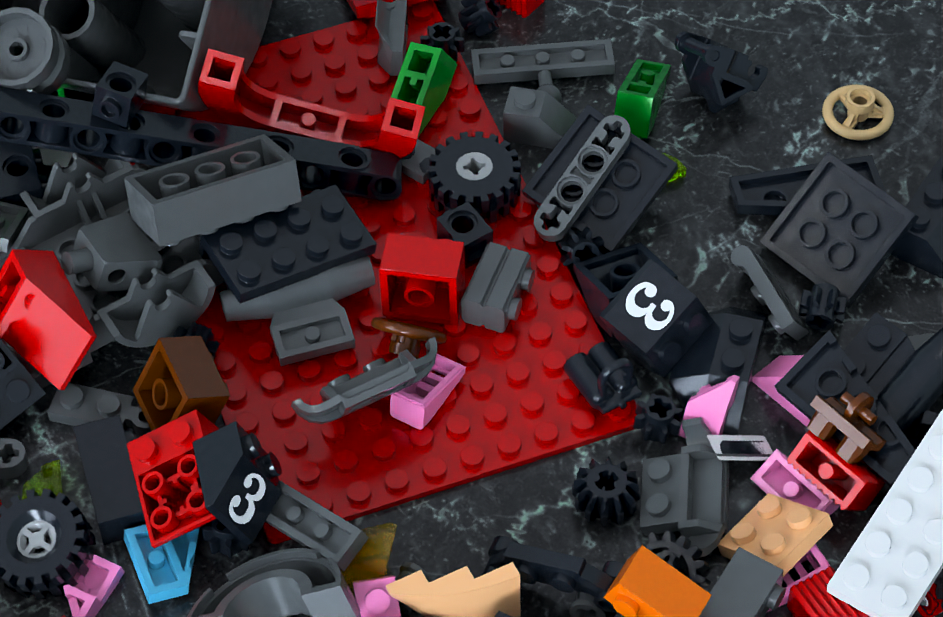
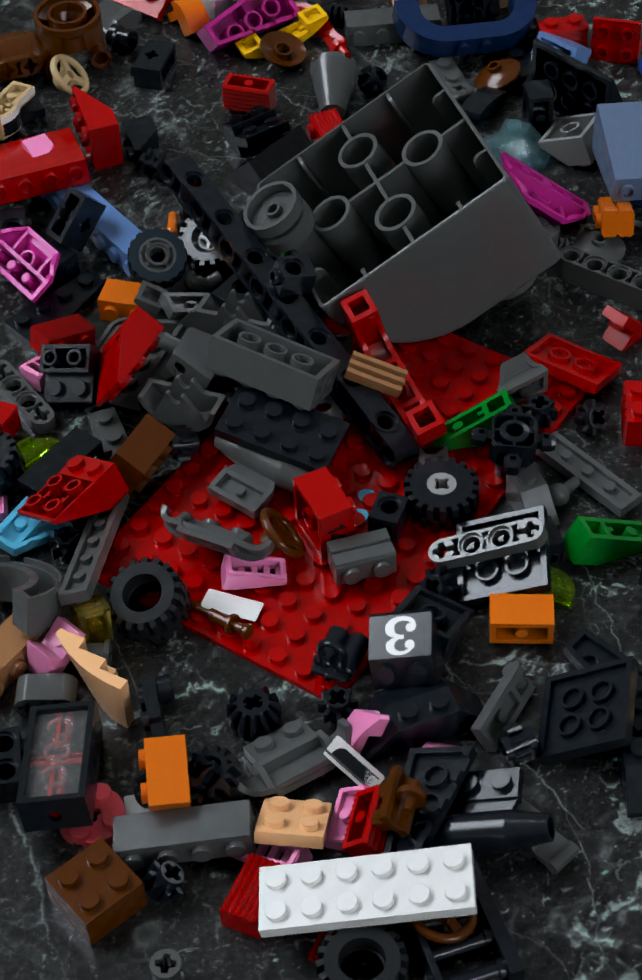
camera: 55 degrees right, 5 degrees down
(237, 479) = (75, 513): black slope -> none
(290, 119) = (378, 370): none -> medium nougat tile
(402, 466) = (133, 585): none -> black tyre
(448, 433) = (232, 604): none -> white sticker
(469, 448) = (230, 622): none -> reddish brown piece
(484, 79) = (512, 440): none -> black piece
(680, 214) = (521, 618): none -> orange brick

